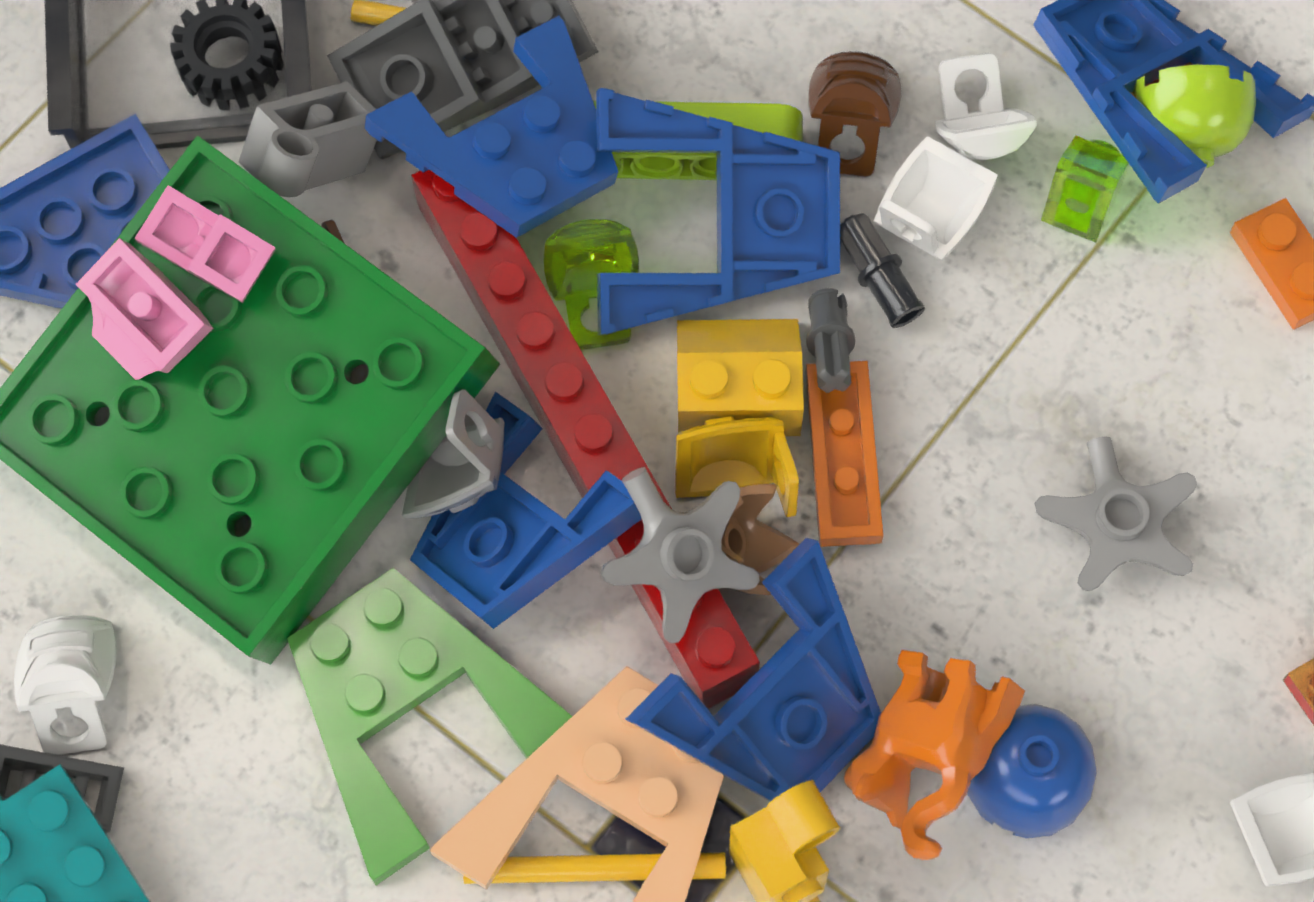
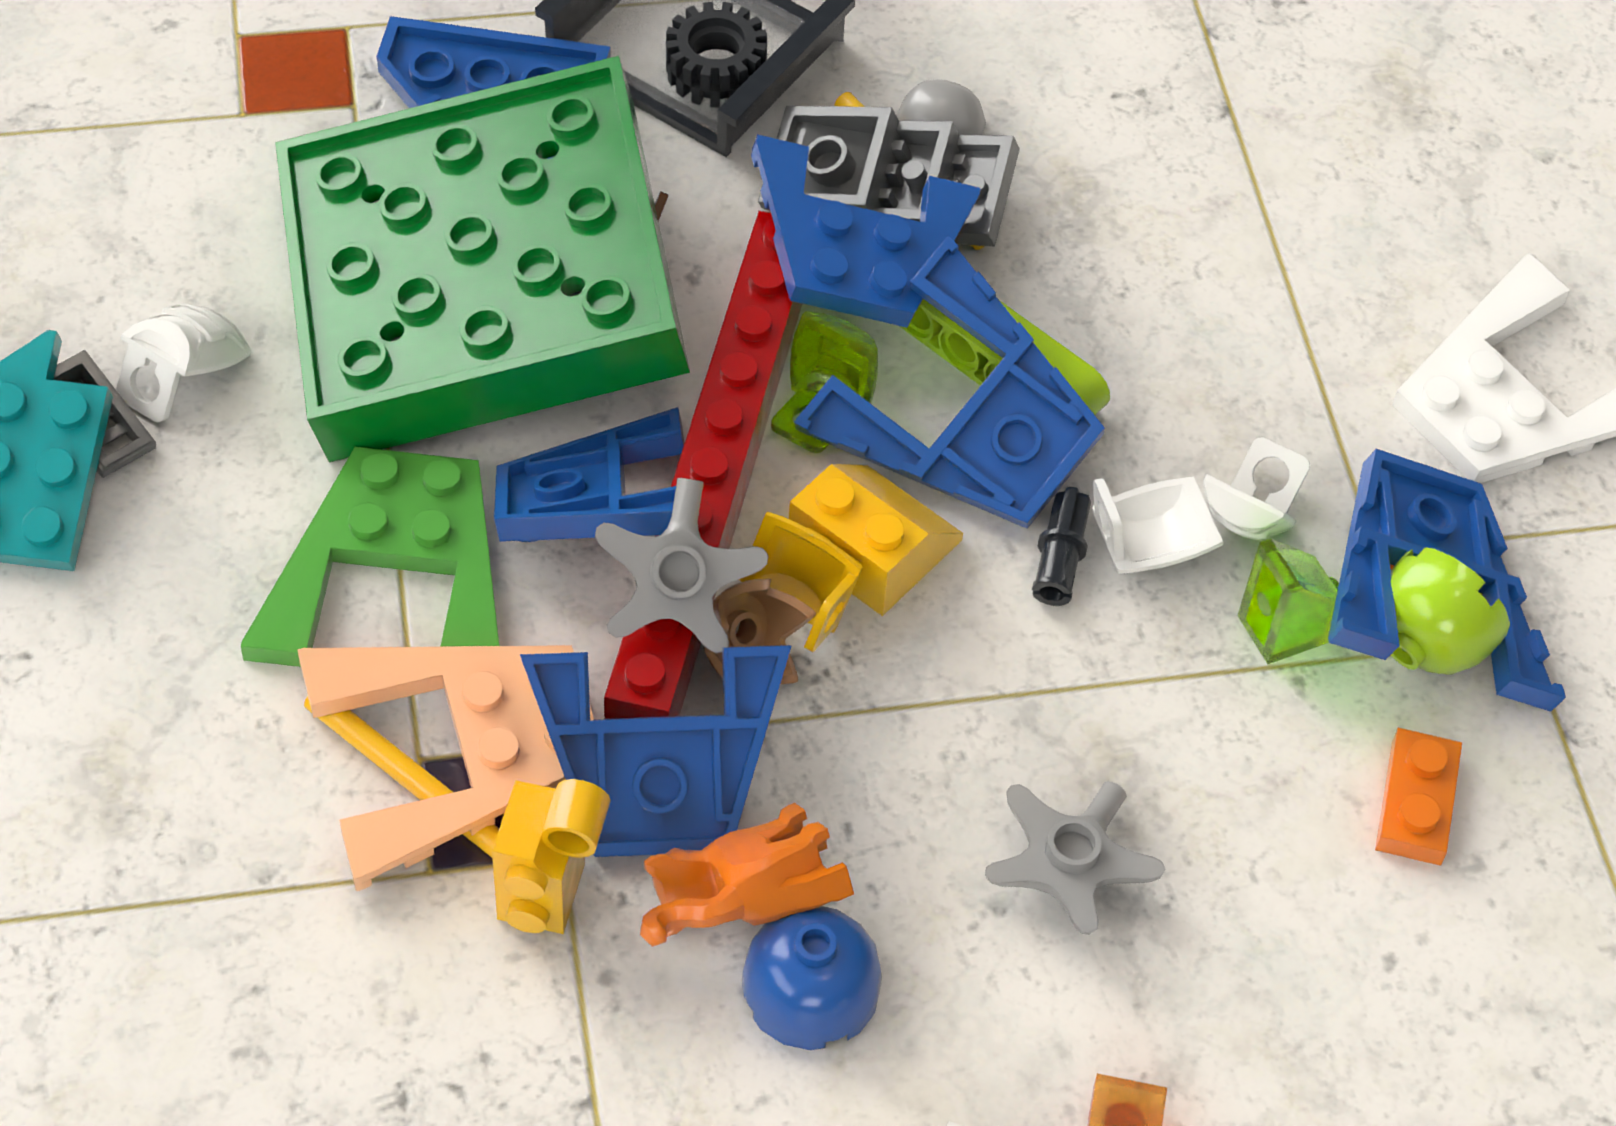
camera: 35 degrees right, 15 degrees down
(140, 312) = (465, 134): bright pink slope -> none
(205, 244) = (549, 122): bright pink slope -> none
(309, 139) = (706, 139): light grey hinge -> none
(461, 466) = (598, 420): light grey piece -> none
(830, 339) = (966, 554): dark grey axle -> none
(844, 460) = (897, 644): orange plate -> none
(855, 92) = (1167, 410): reddish brown piece -> none

